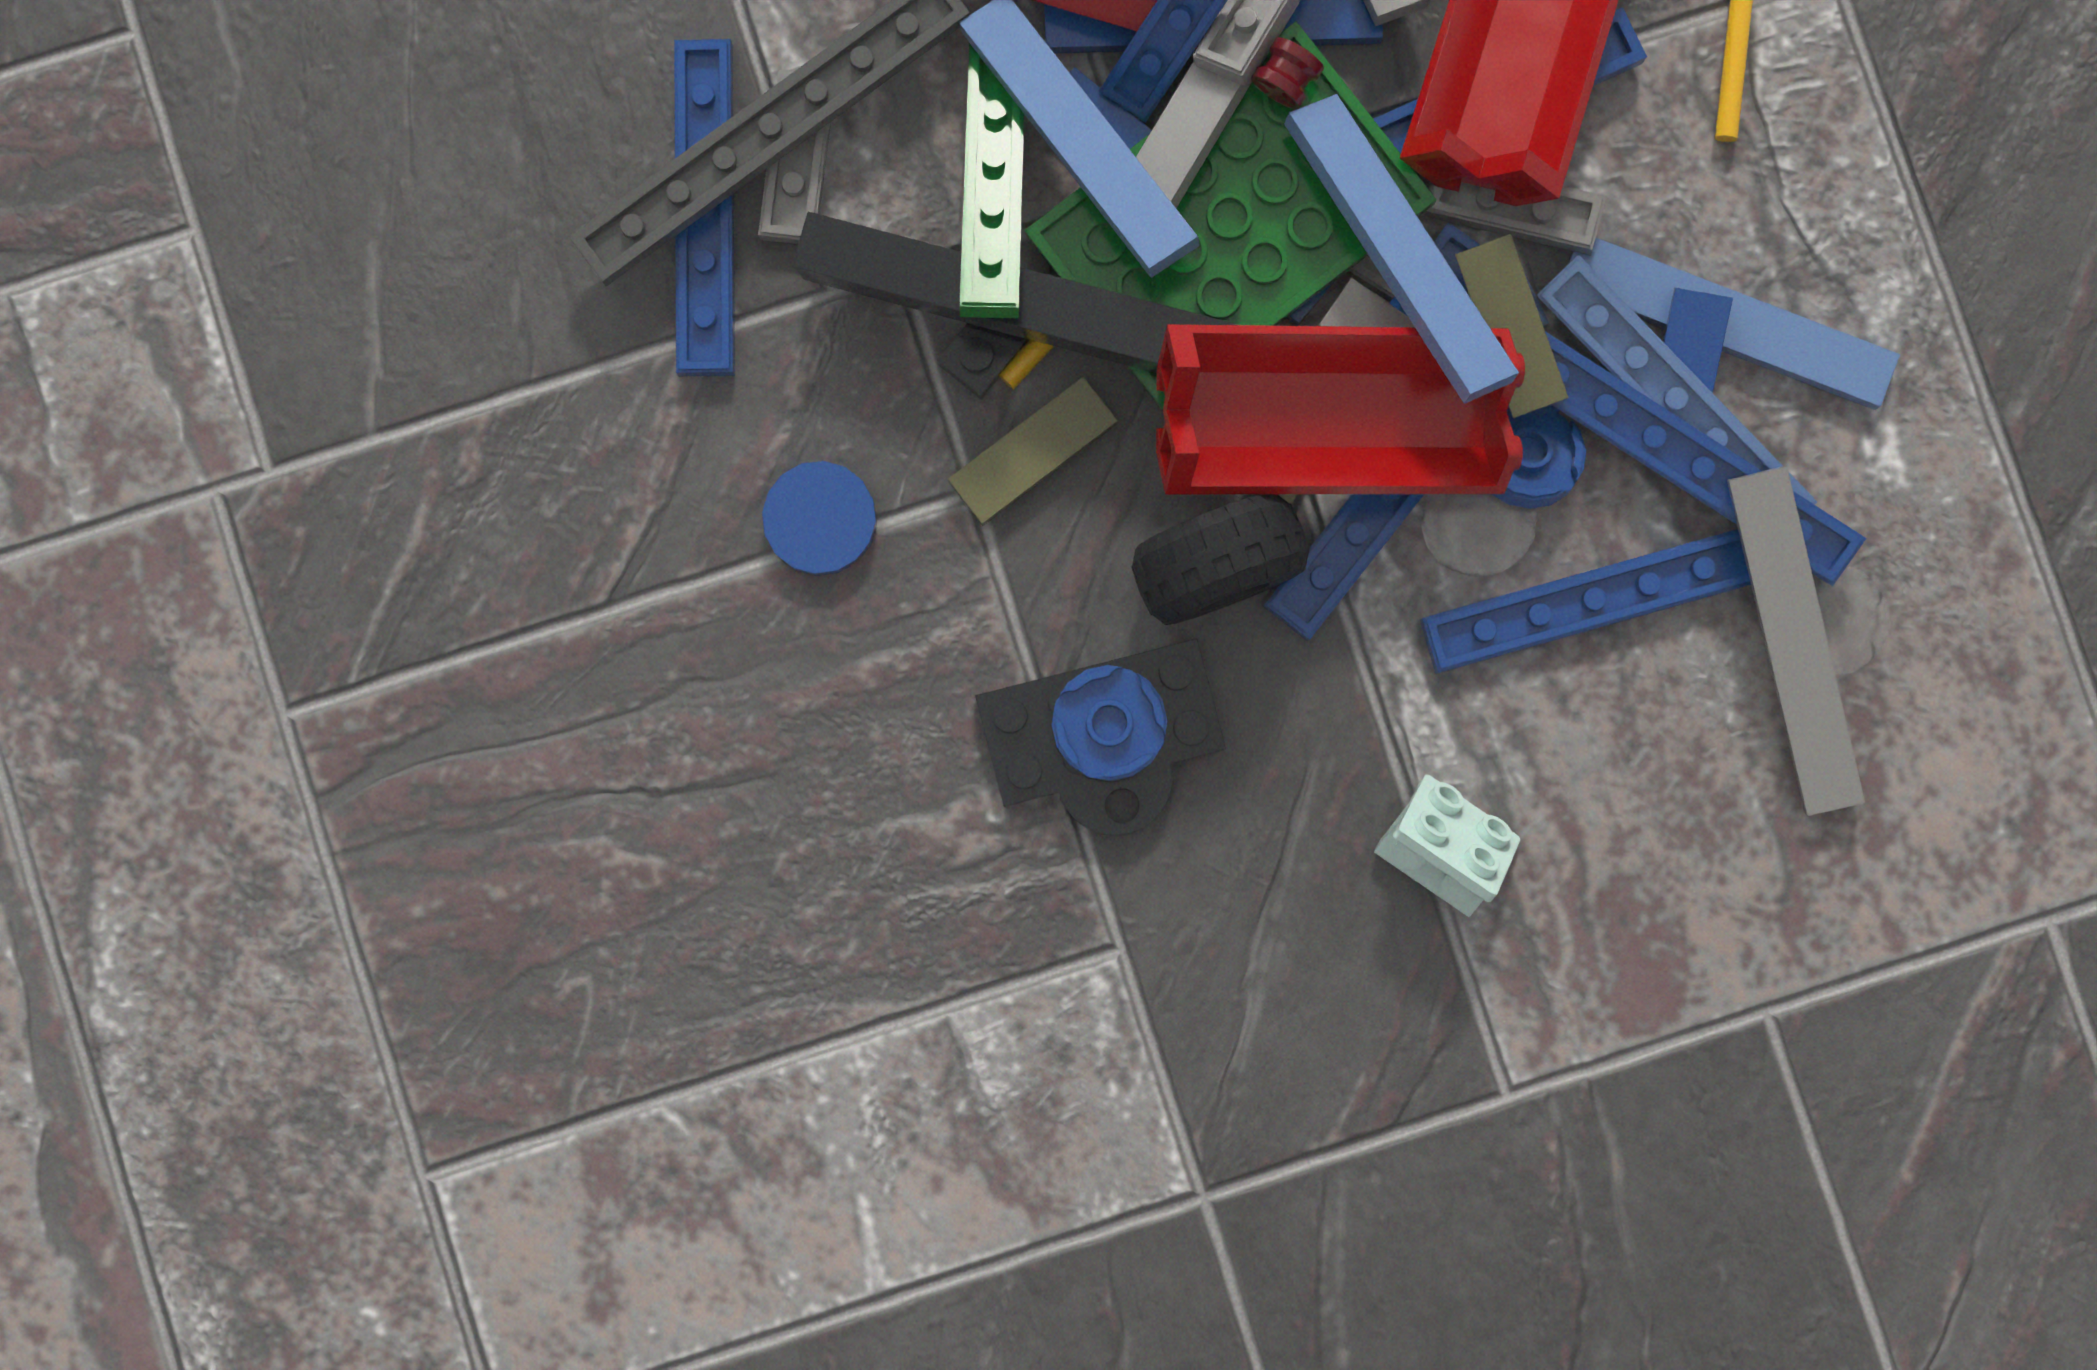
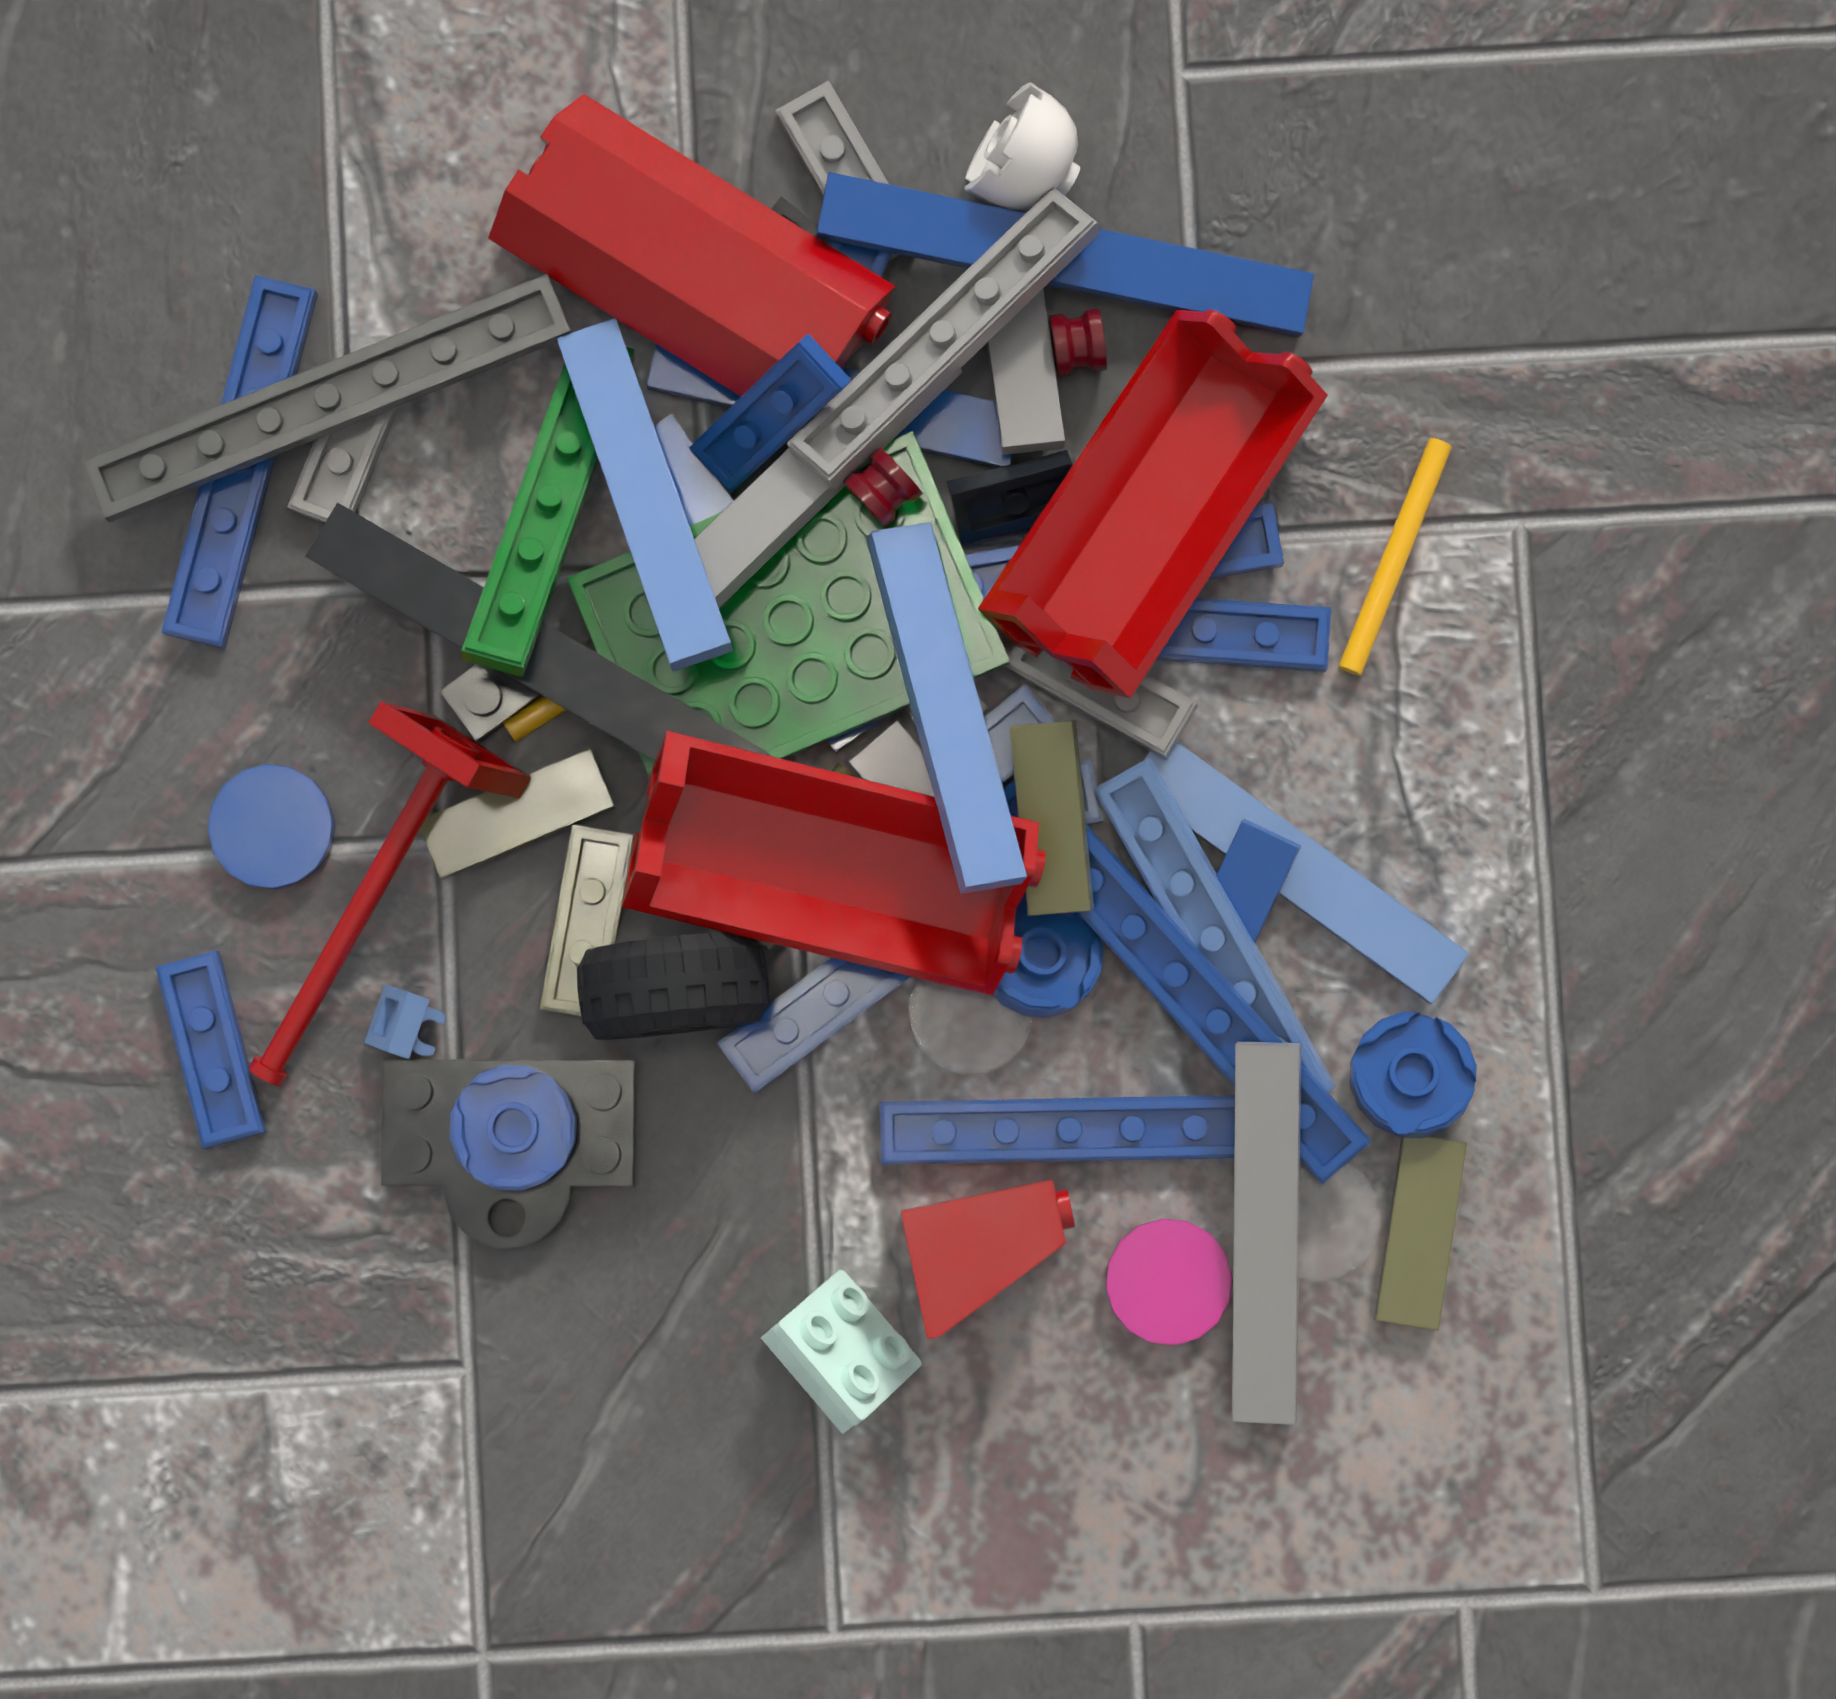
camera: 20 degrees right, 0 degrees up
(818, 727) = (211, 1049): none -> blue tile
(963, 414) = (447, 757): none -> red tile
(981, 658) = (399, 1021): none -> medium blue tile
(1118, 523) = (586, 911): none -> tile
(1391, 60) = (1006, 496): none -> black plate
(1552, 720) = (980, 1245): none -> red slope
(1639, 128) = (1252, 635): none -> blue tile
(1716, 708) = (1168, 1281): none -> dark pink tile
(1880, 473) = (1412, 1075): none -> blue tile
(1923, 607) = (1420, 1232): none -> olive tile

